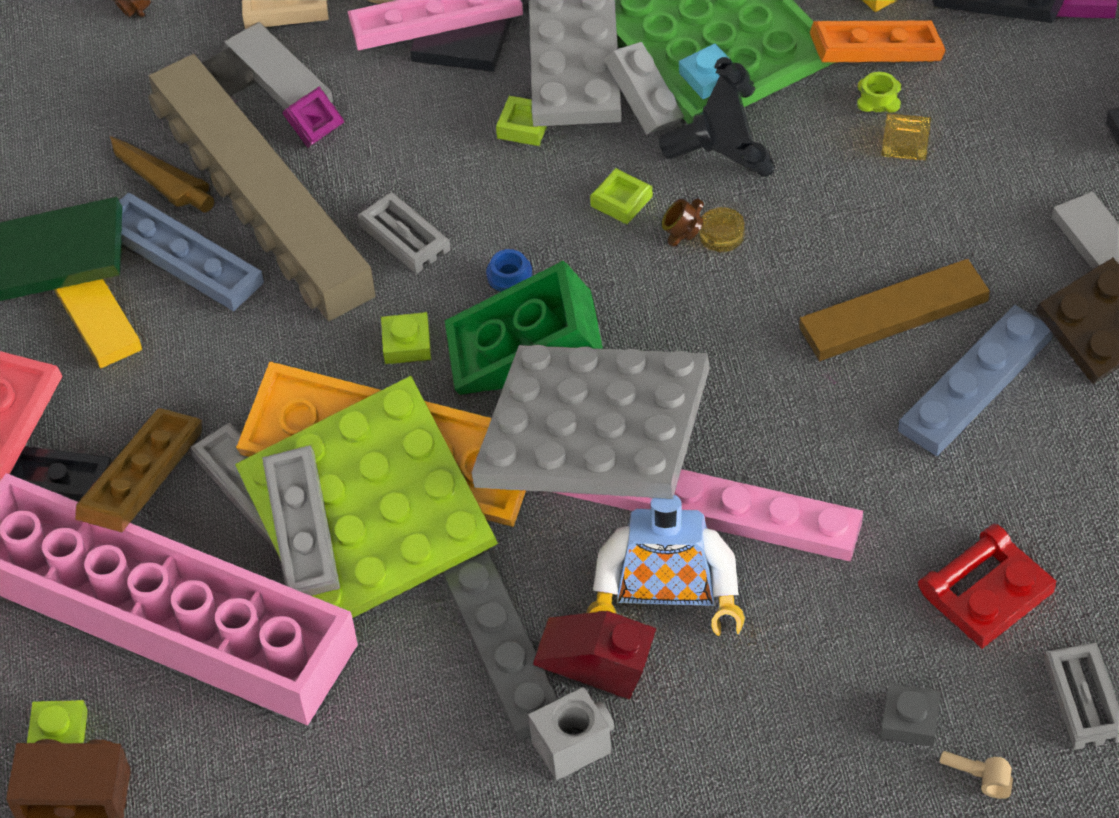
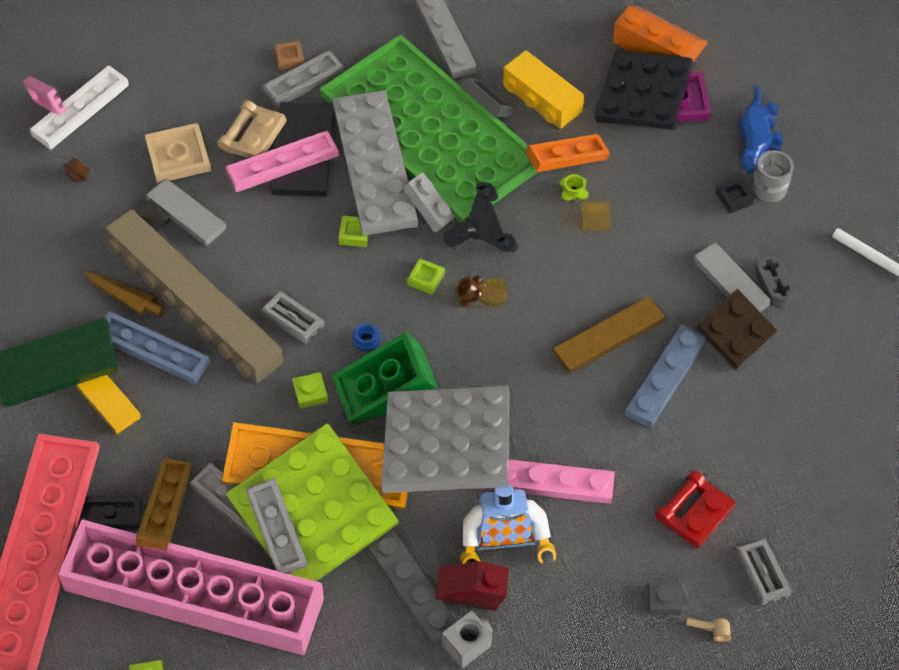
camera: 15 degrees left, 5 degrees up
(313, 117) = (217, 243): magenta tile -> none
(699, 70) = (464, 185): medium azure plate -> none

